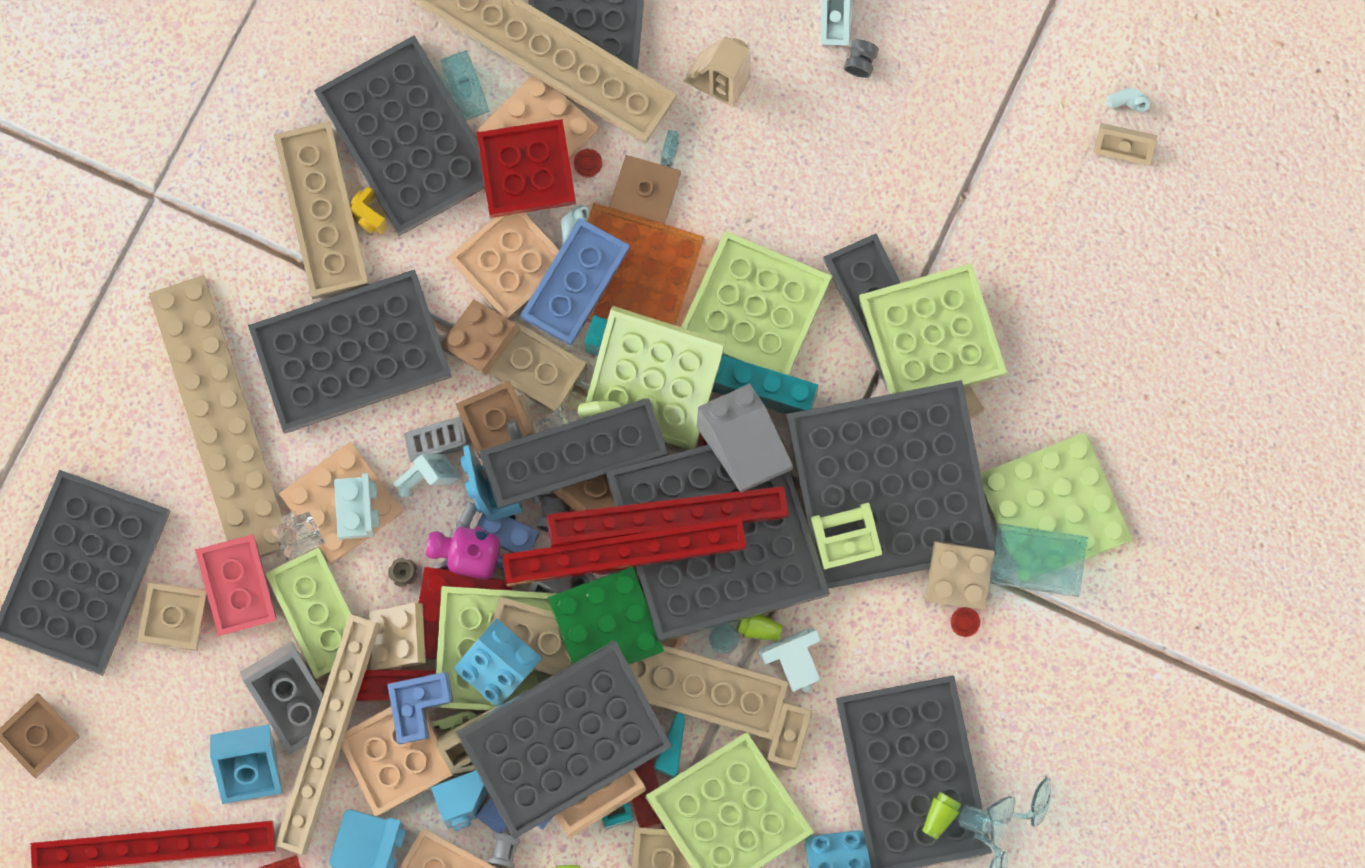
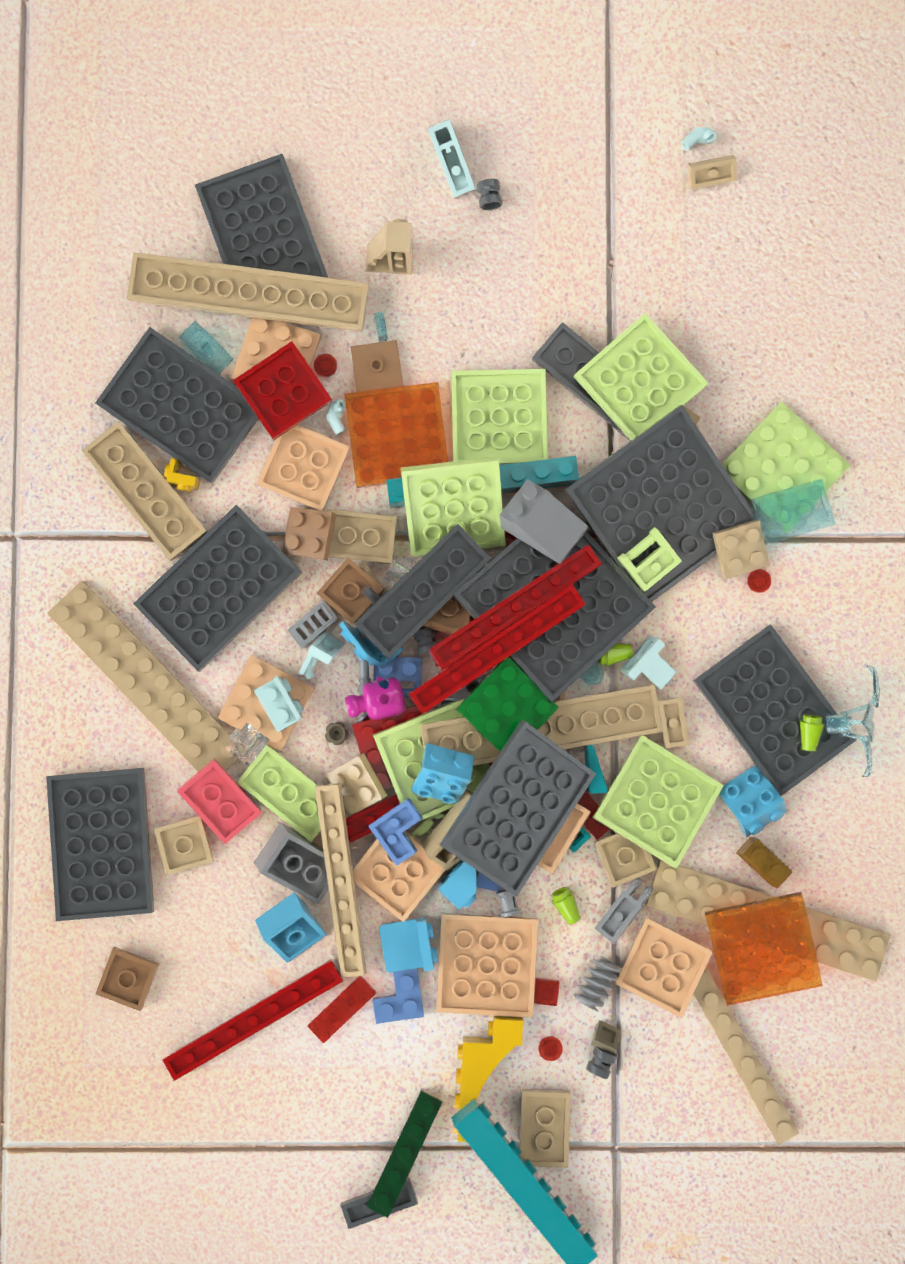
camera: 30 degrees left, 10 degrees up
(575, 282) = (360, 460): medium blue plate -> none
(596, 407) = (422, 547): yellowish green arm -> none

